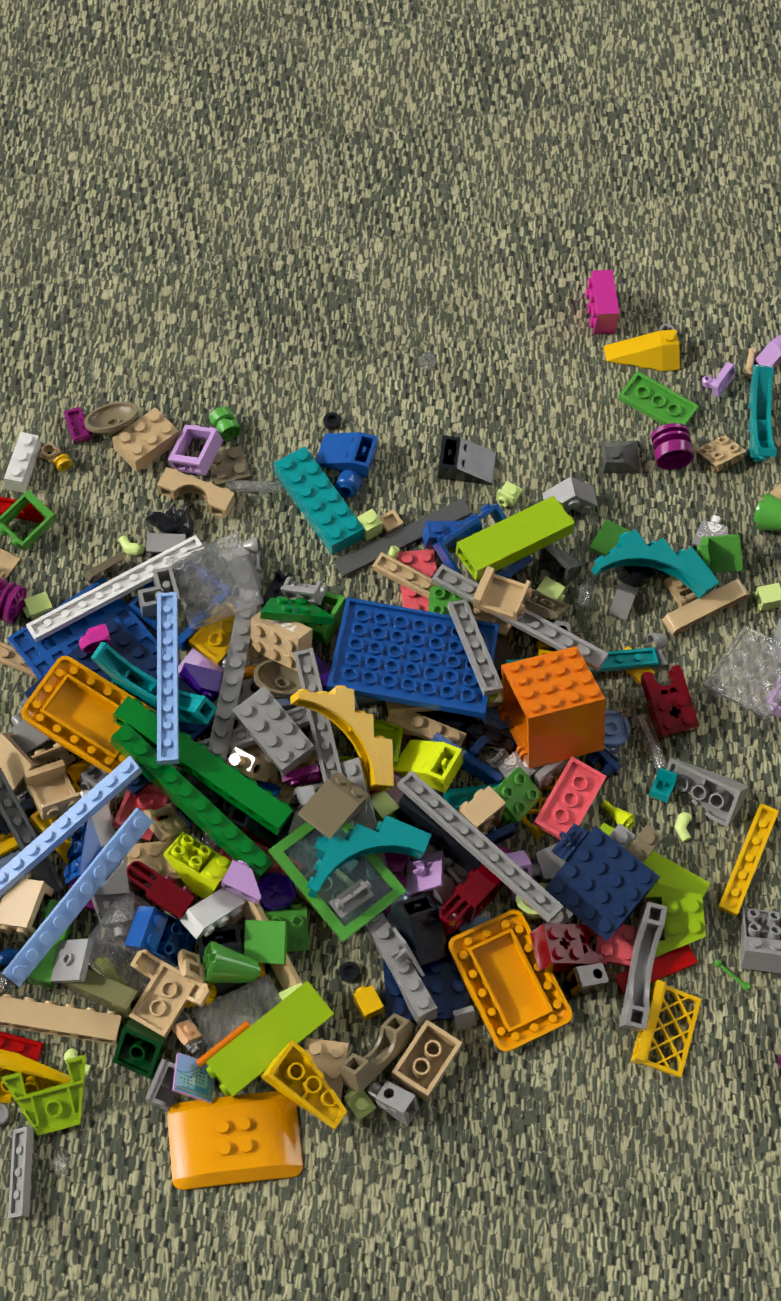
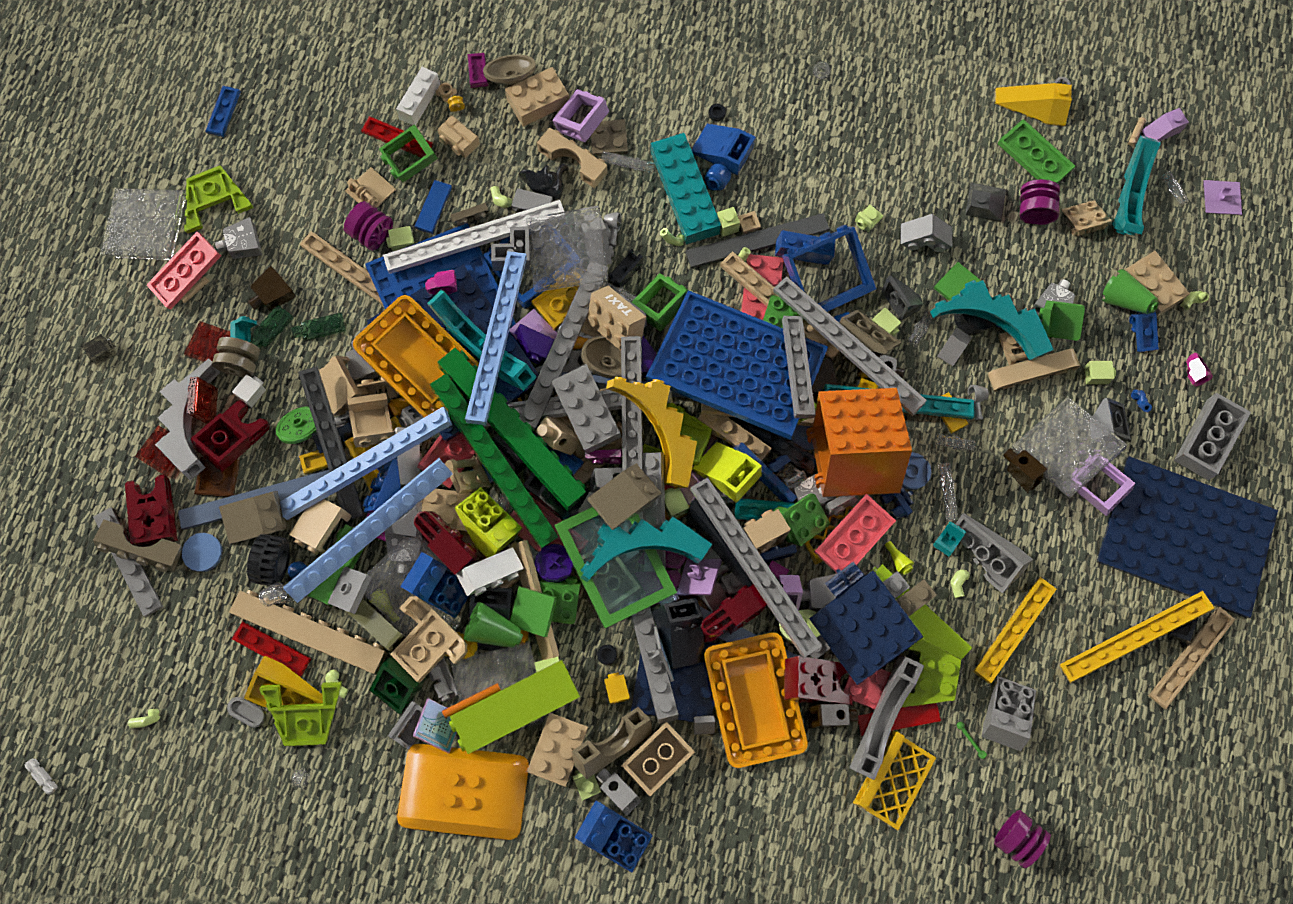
camera: 15 degrees right, 10 degrees up
(20, 1173) = (261, 777): light grey plate -> none
(63, 568) = (433, 207): none -> blue tile
(73, 494) = (458, 137): none -> tan brick
(186, 1032) = (440, 680): light nougat plate -> none
(190, 965) = (456, 620): tan slope -> none
(225, 423) = (614, 94): bright green wheel -> none
(241, 881) = (521, 549): lavender slope -> none
(294, 611) = (634, 294): green wing -> none
(301, 1081) = (533, 756): yellow wedge -> none
(310, 592) = (649, 276): light grey hinge -> none
(316, 553) = (670, 239): none -> yellowish green arm
(351, 898) = (622, 589): light grey hinge -> none
(399, 1147) = (613, 836): none -> blue slope
(465, 461) = (834, 177): slope -> none
(502, 595) = (836, 320): tan panel -> none
(515, 537) = (863, 265): lime brick -> none
(602, 302) = (1005, 43): dark pink brick -> none
(667, 699) = (973, 455): dark red brick -> none
(720, 703) = (1025, 469): none -> dark brown torso
(723, 380) = (1101, 148): lavender piece -> none

